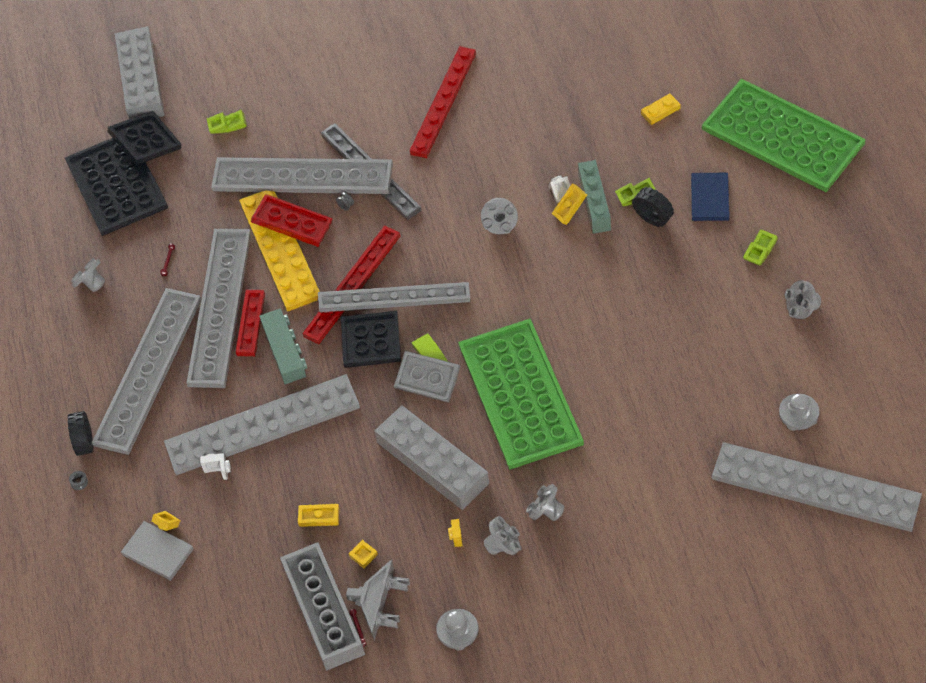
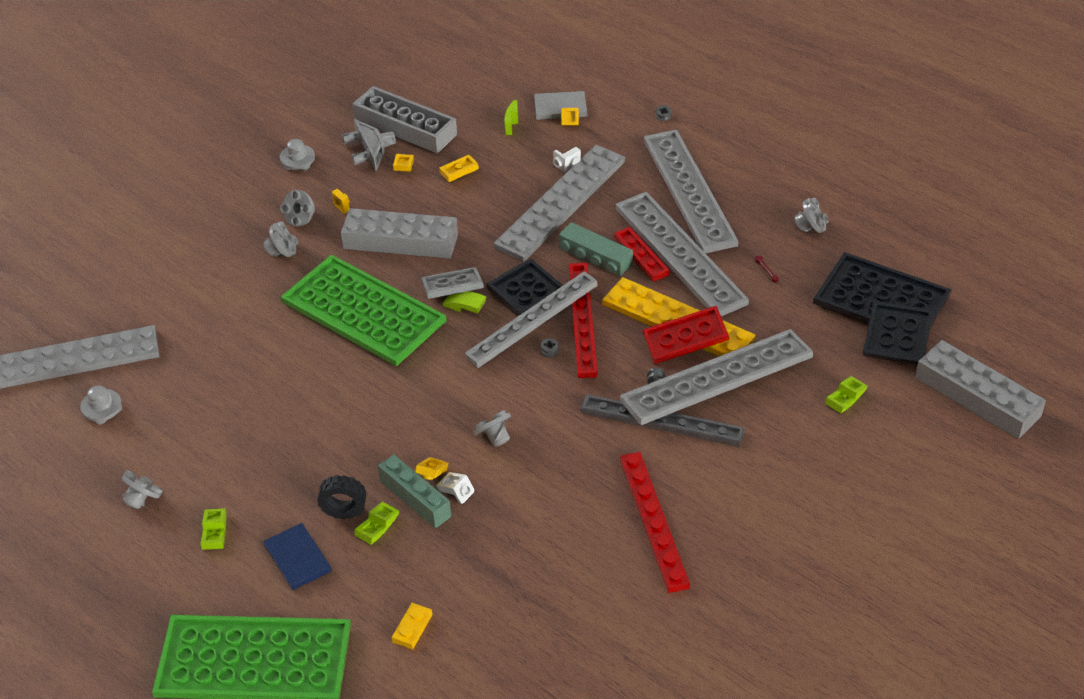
camera: 140 degrees right, 10 degrees down
(80, 433) = (693, 116): black tyre -> none
(214, 557) = (511, 117): none -> lime slope
(398, 269) = (549, 342): none -> dark grey bush

